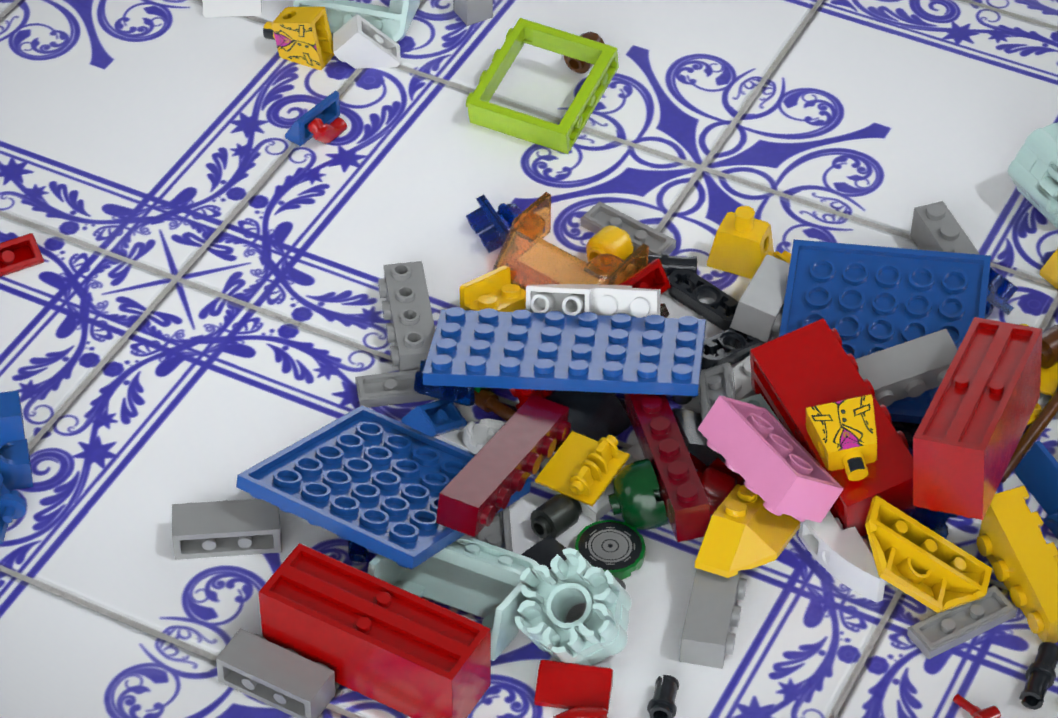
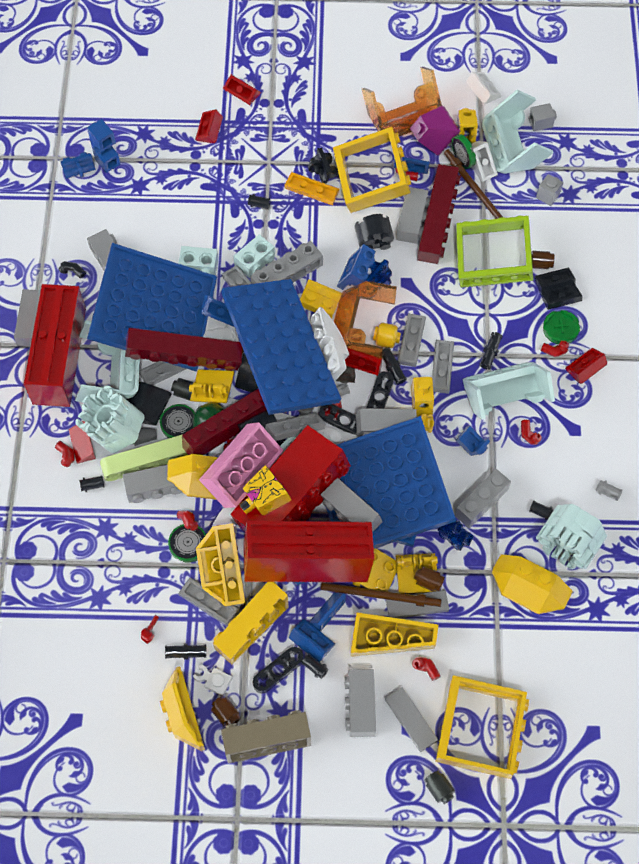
camera: 65 degrees right, 20 degrees up
(47, 322) = (209, 126): none -> red slope
(206, 587) = (71, 266): none -> black arm
(224, 75) = (403, 117): none -> clear orange windscreen
(242, 212) = (320, 165): none -> black hips
(246, 314) = (257, 201): none -> black pin
(270, 244) = (311, 188): none -> light orange tile
(284, 62) = (435, 129): none -> magenta slope
(293, 196) = (379, 195): none -> yellow window
(314, 410) = (198, 258): none -> light aqua brick
(345, 50) = (461, 149): none -> tile
(351, 76) = (457, 163): none -> reddish brown bar
(357, 345) = (253, 254): none -> light aqua brick
(410, 149) = (413, 215): none -> light grey brick
(421, 193) = (374, 232): none -> black brick
(429, 122) = (438, 213): none -> dark red brick
(471, 232) = (357, 267): none -> blue plate
(643, 58) = (558, 288): none -> black slope
(657, 608) = (142, 458): none -> yellowish green beam
(685, 214) = (442, 366): none -> light grey tile
(703, 156) = (491, 350): none -> black pin
(705, 79) = (561, 327): none -> green tile
(742, 96) = (555, 351): none -> red arm
(769, 161) = (508, 385): none -> light aqua windscreen
(782, 78) = (587, 365): none -> red slope
(802, 588) = (188, 519): none -> red arm
(842, 611) = (183, 543): none -> tile
(850, 228) = (472, 442): none -> blue bracket
(861, 173) = (528, 435): none -> red arm
(990, 131) = (608, 490): none -> light grey pin
(1000, 198) = (541, 510): none -> black pin

